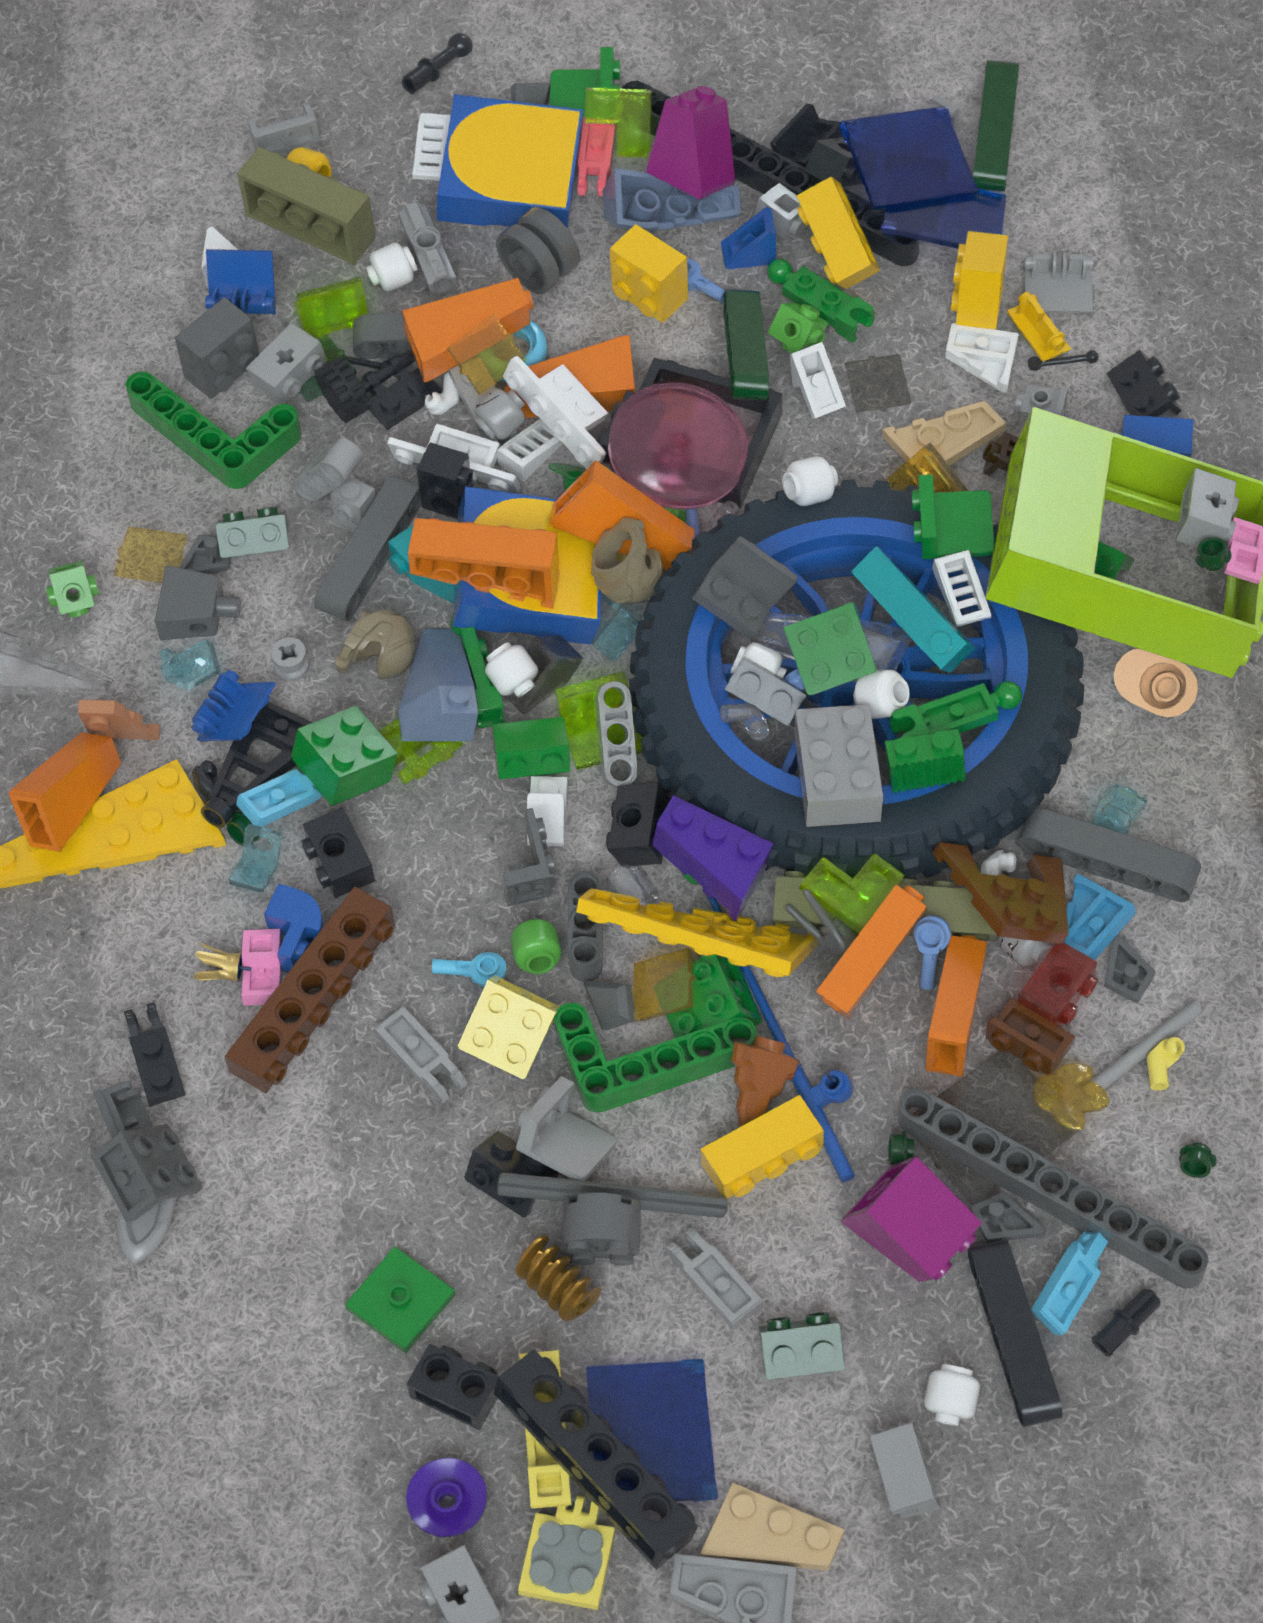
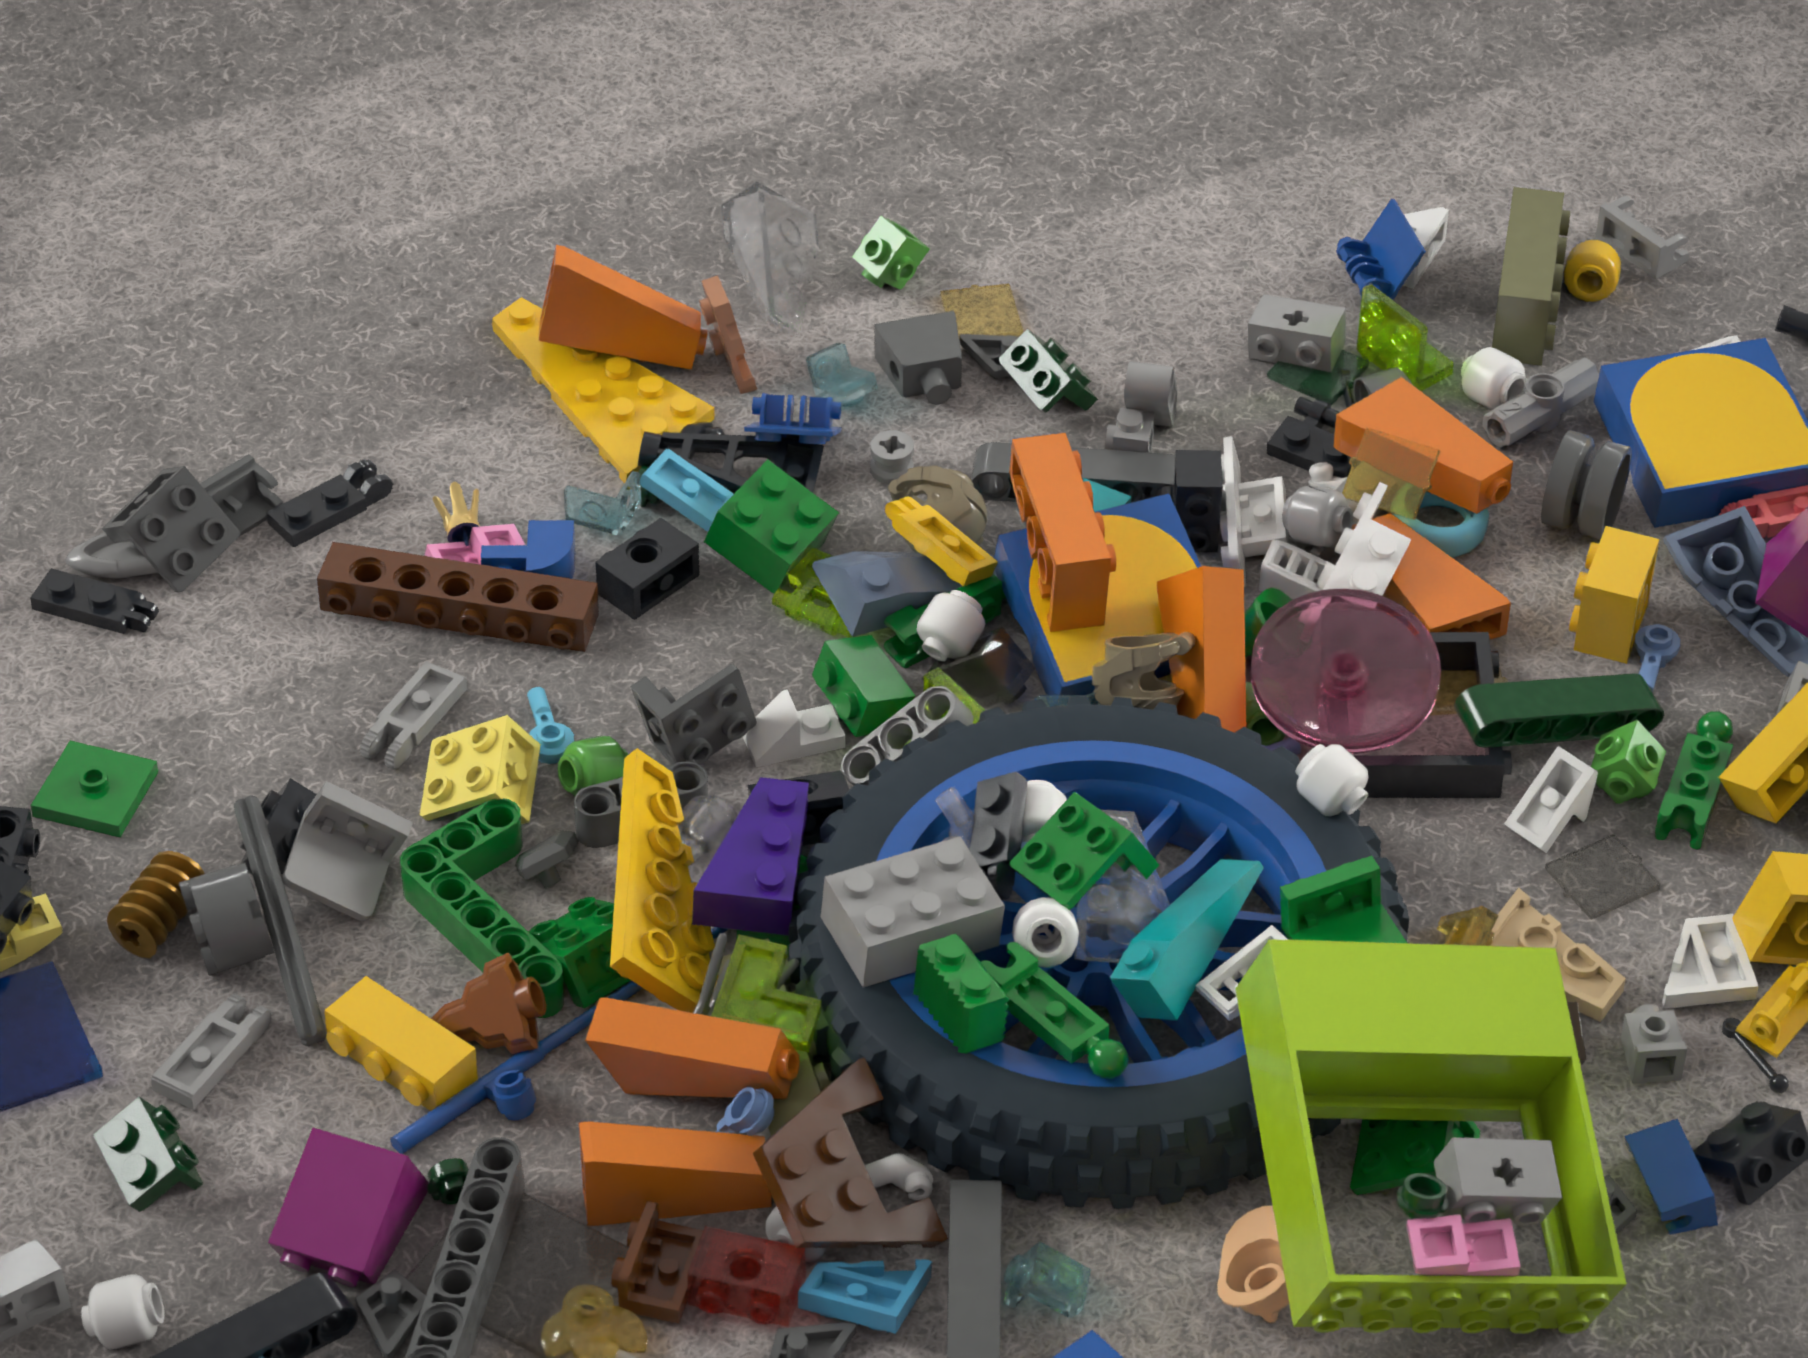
camera: 65 degrees right, 15 degrees down
(187, 1254) = (93, 602): none -> black hinge
(217, 348) = (1275, 258): dark grey brick -> none
(230, 460) = (1144, 322): green beam -> none
(342, 389) = (1280, 380): black tyre -> none
(429, 647) = (940, 541): none -> yellow hinge
(663, 985) = (581, 894): clear yellow piece -> none
(744, 586) = (1128, 759): dark grey bracket -> none
(751, 243) = (1744, 693): blue slope -> none

